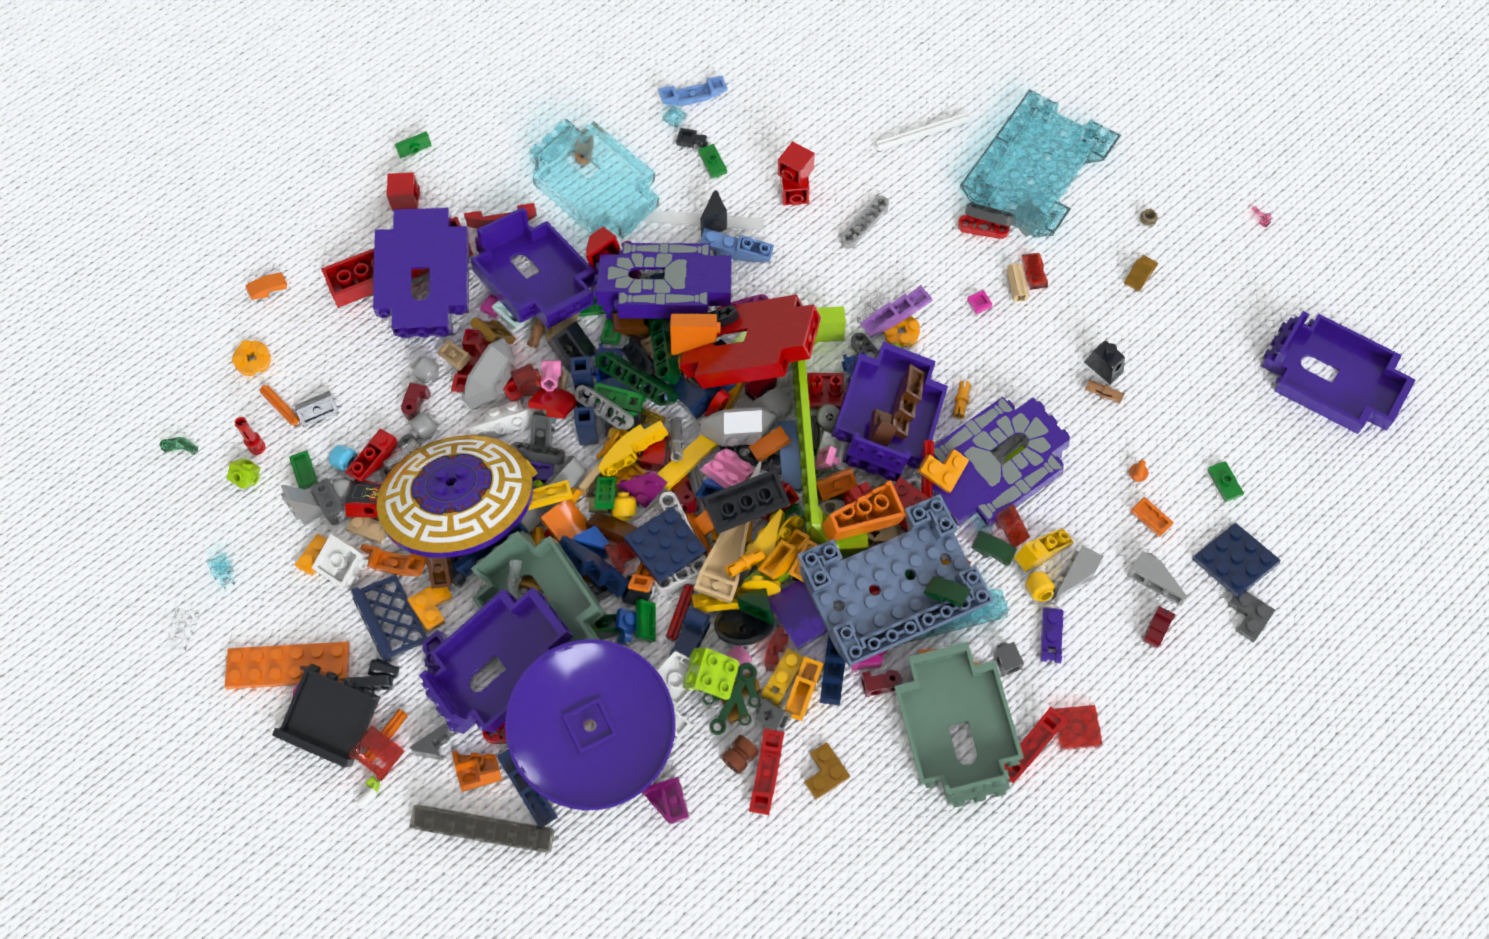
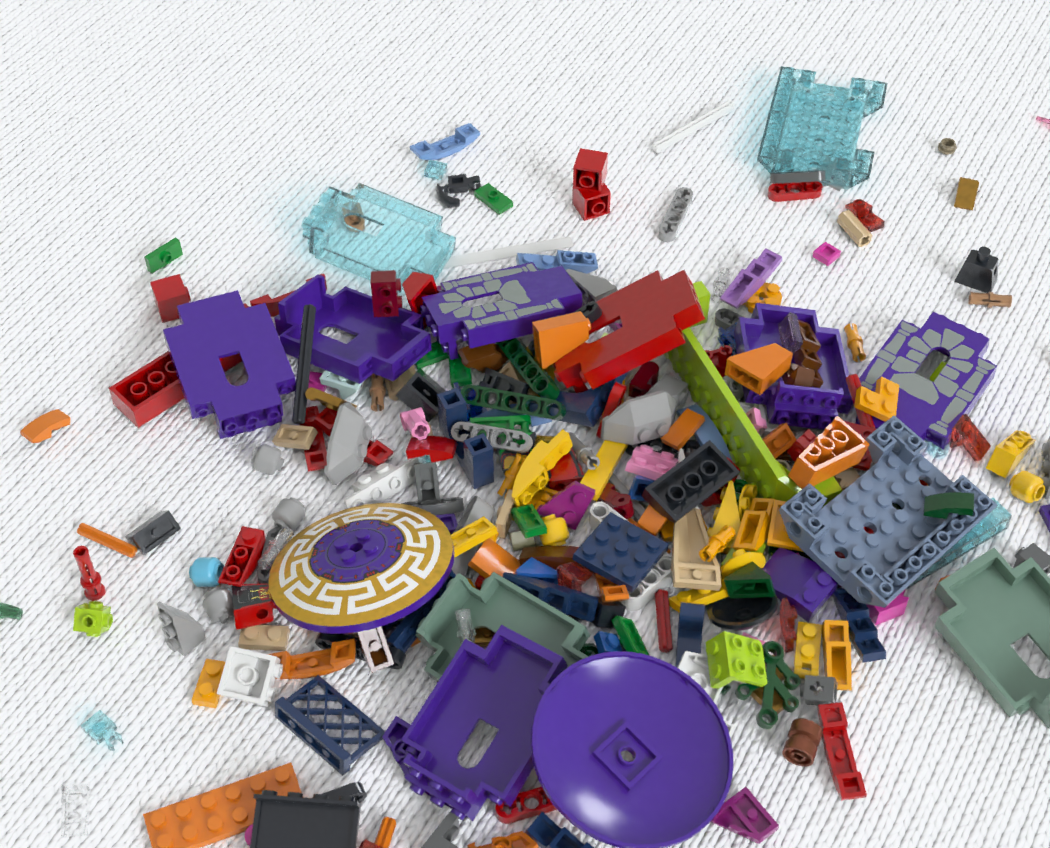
camera: 20 degrees left, 15 degrees down
(247, 349) = (46, 494): light orange plate -> none
(303, 469) = (159, 591): green tile -> none
(327, 500) = (209, 616): dark grey bracket -> none
(380, 667) = (343, 777): black cone -> none
(413, 400) = (265, 487): dark red leg -> none
(425, 606) = (370, 697): light orange plate -> none
(479, 292) = (304, 363): none -> black axle
(527, 380) = (392, 435): clear red slope -> none
(567, 245) = (385, 293): none -> dark red brick
(671, 153) = (444, 198): none -> black piece
(714, 214) = (524, 236): black slope -> none
(754, 282) = (591, 286): none -> light grey slope
(831, 772) = (908, 733): pearl gold plate -> none
(849, 411) = (759, 367): none -> orange slope
(880, 683) = (913, 627): dark red leg -> none
(897, 382) = (790, 333): none -> clear purple plate
(992, 546) = (958, 463): dark green slope -> none

